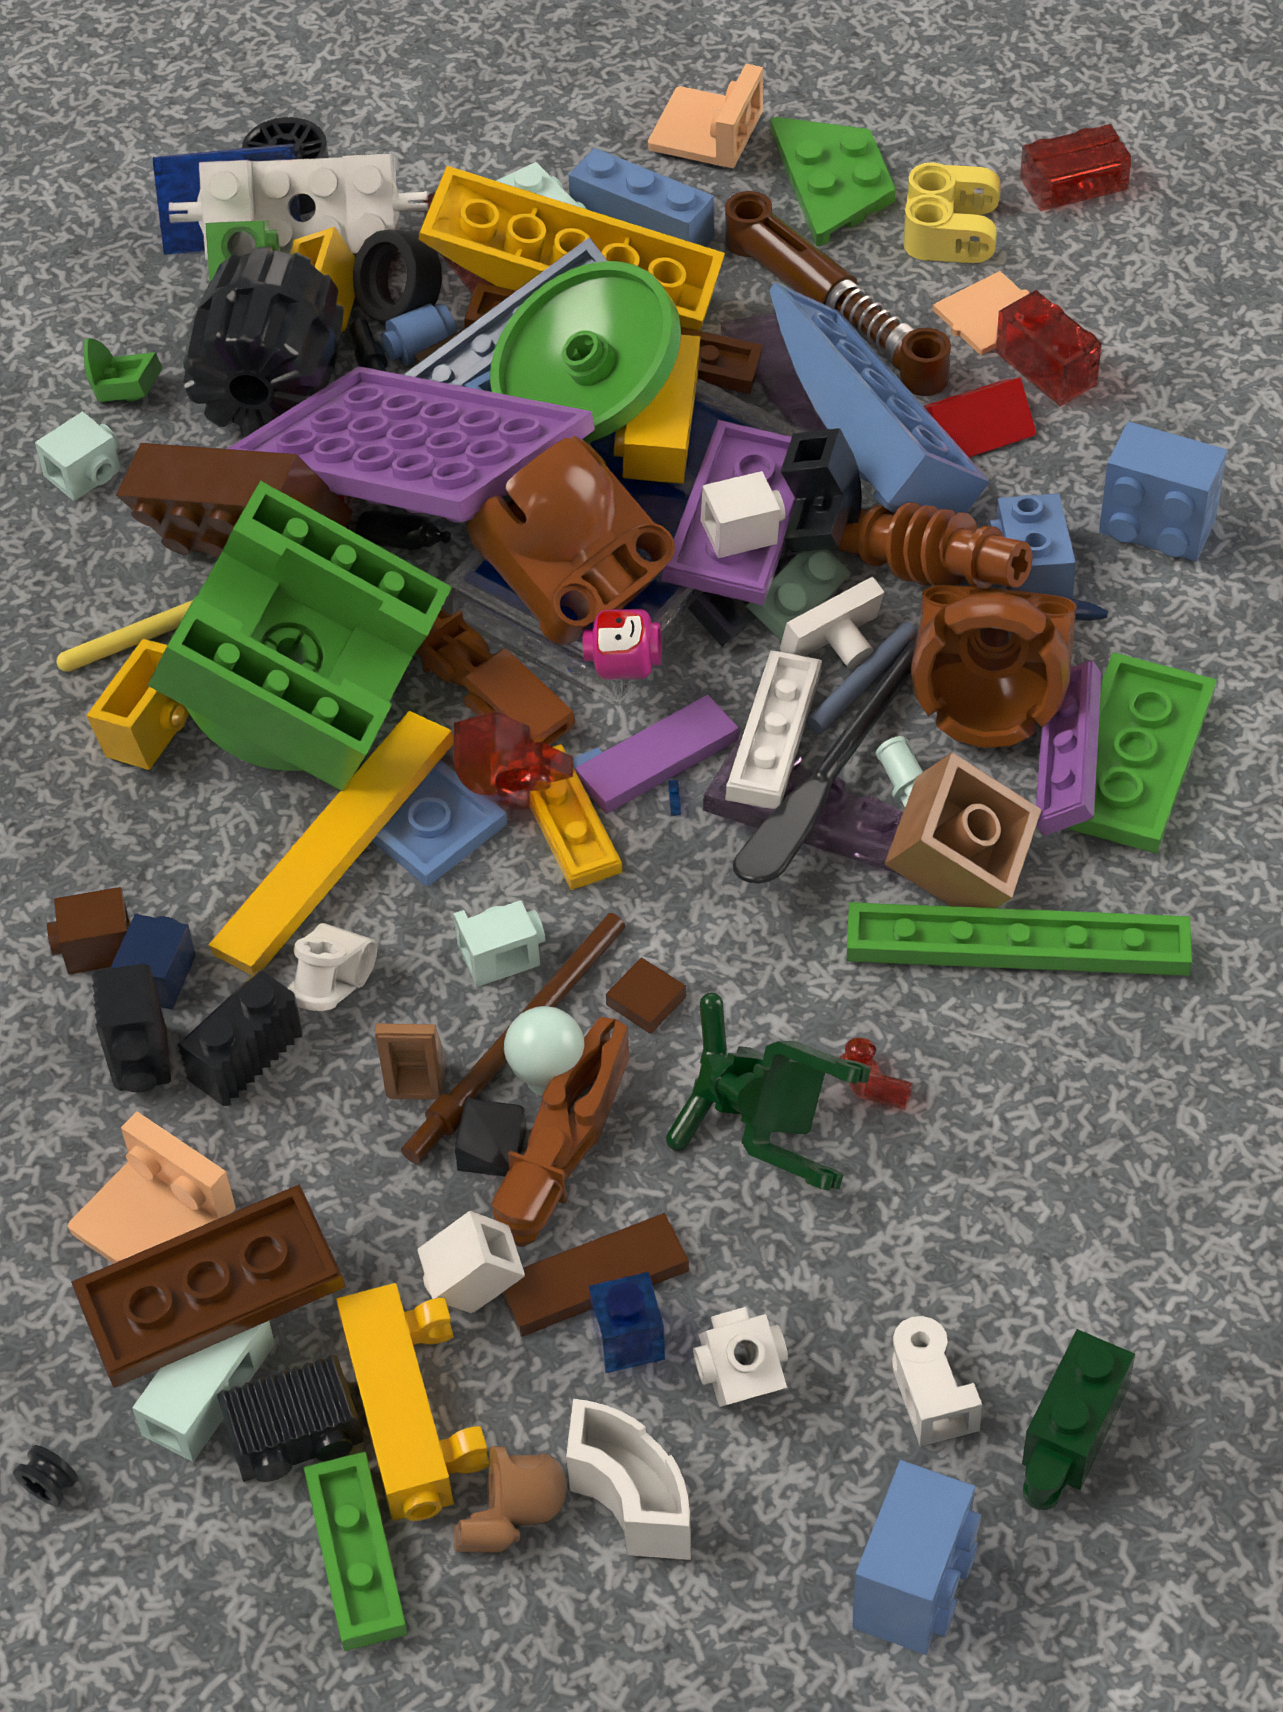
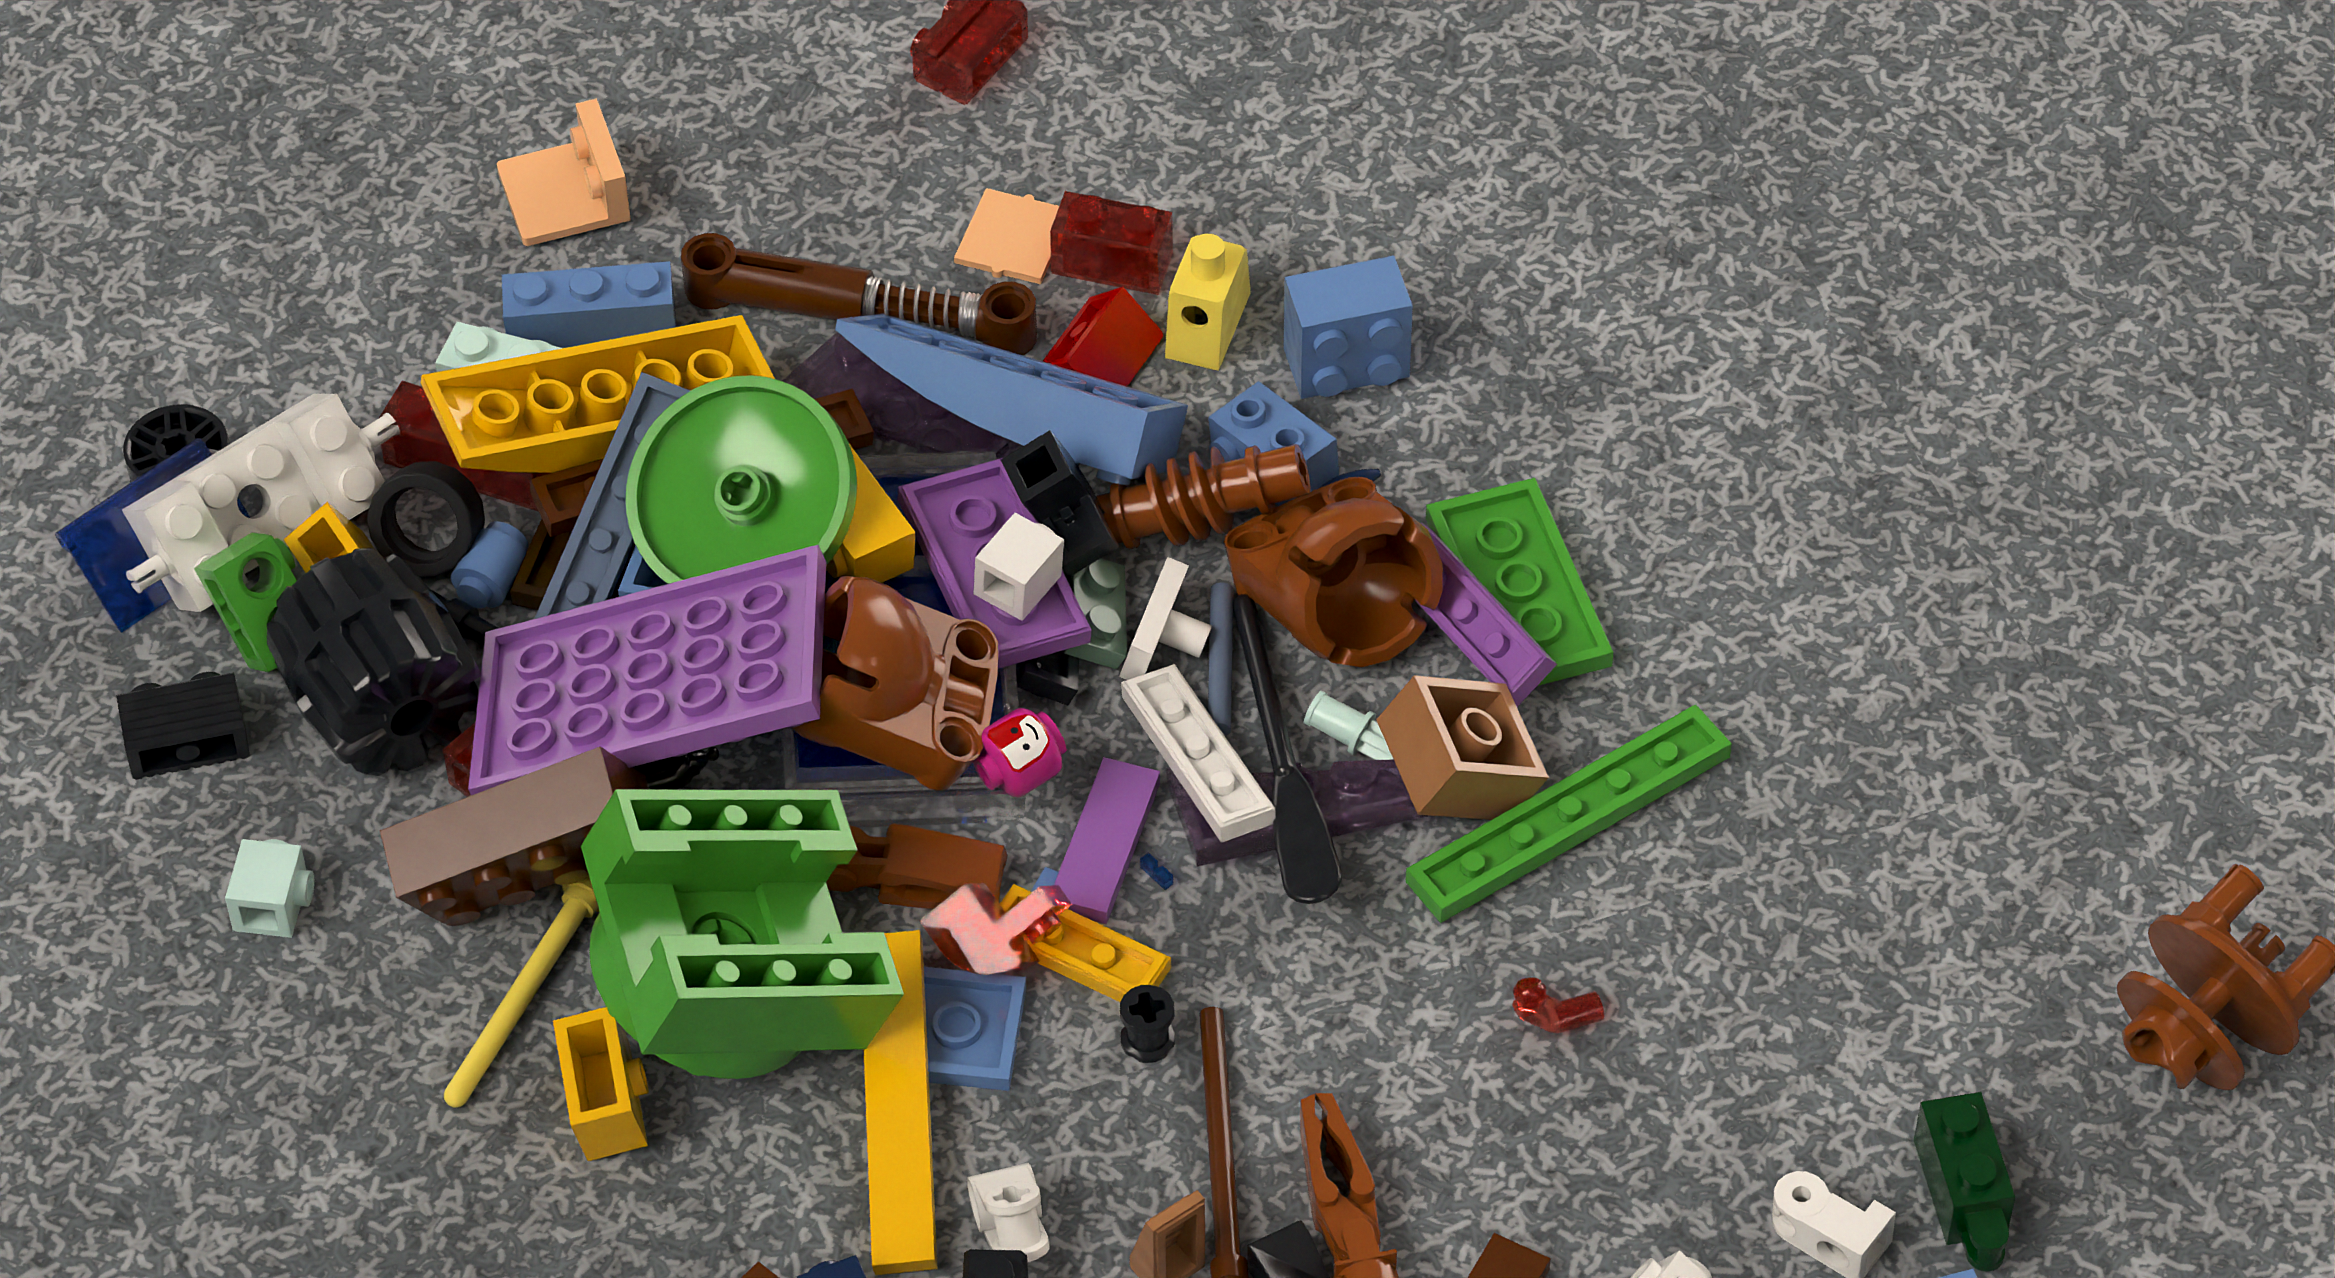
camera: 40 degrees left, 0 degrees up
(121, 376) = (223, 781): bright green plate -> none
(132, 322) = (182, 724): none -> black brick
(499, 941) = (1133, 1095): light aqua brick -> none
(542, 1046) = (1276, 1158): light aqua piece -> none
(555, 892) = (1147, 1022): none -> black bush
(646, 995) = (1299, 1061): reddish brown tile -> none
(769, 1091) = (1495, 1074): dark green piece -> none
(833, 173) = (733, 172): bright green wing -> none
(946, 212) = (885, 173): light yellow piece -> none
(1077, 419) = (1212, 280): none -> light yellow torso

